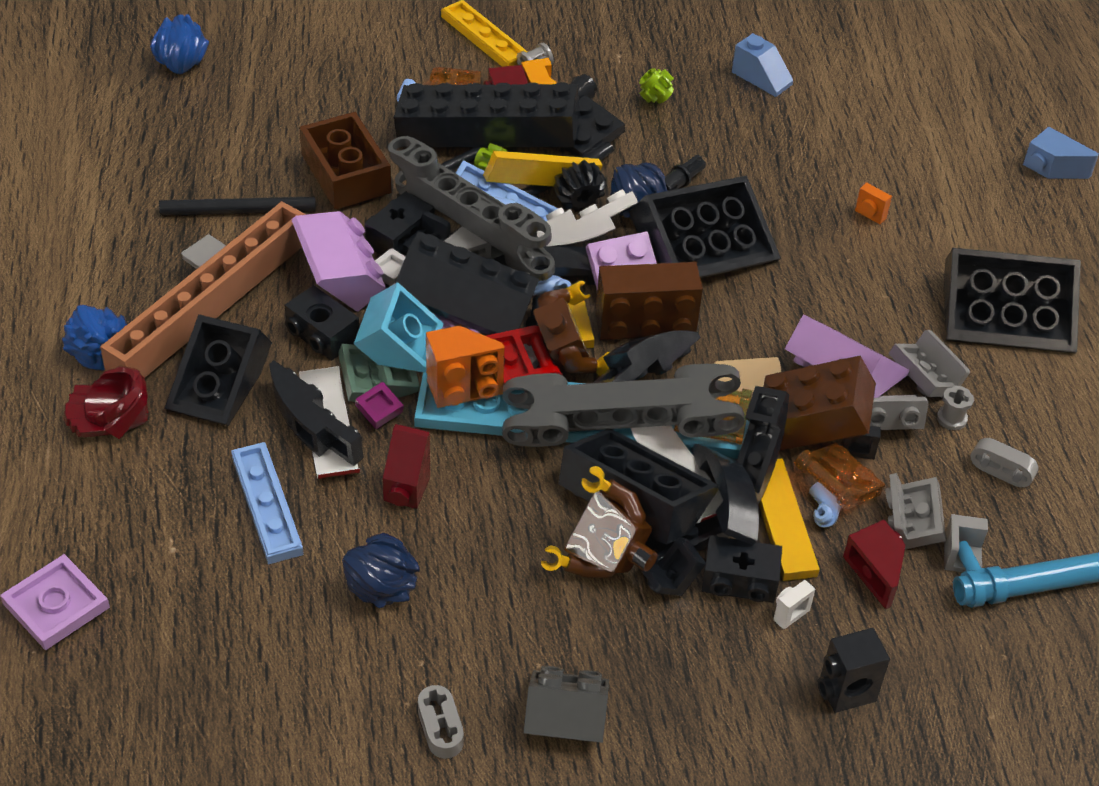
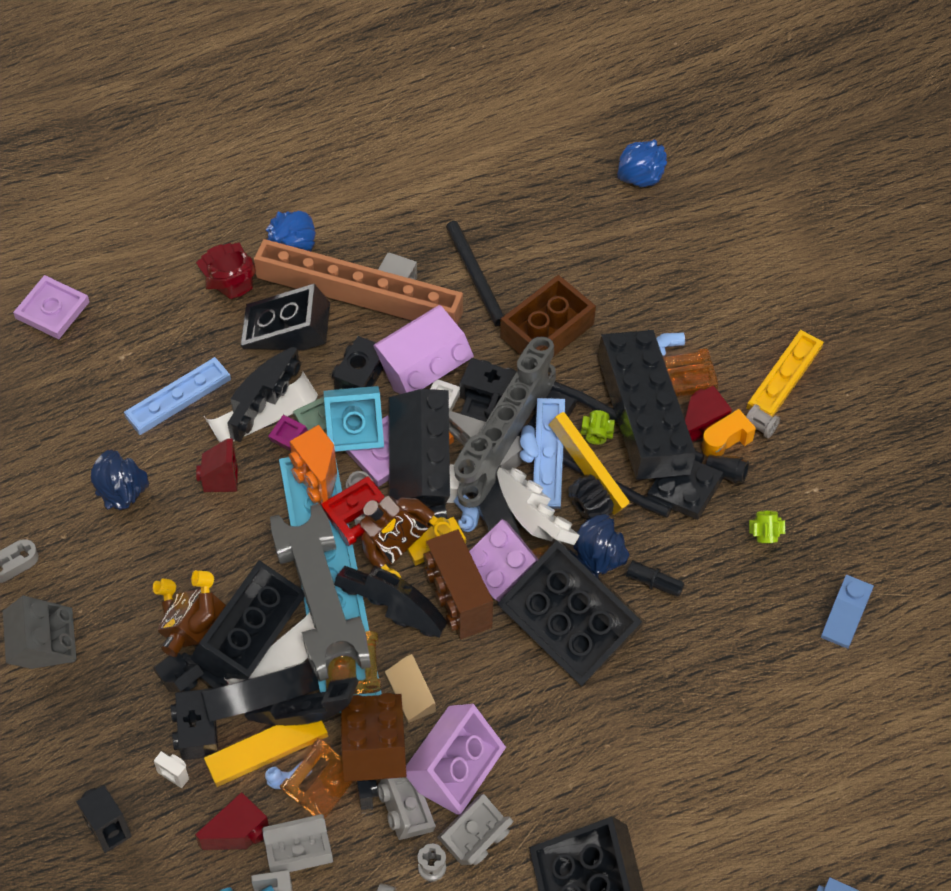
camera: 75 degrees right, 10 degrees up
(873, 203) = (680, 747): orange plate -> none

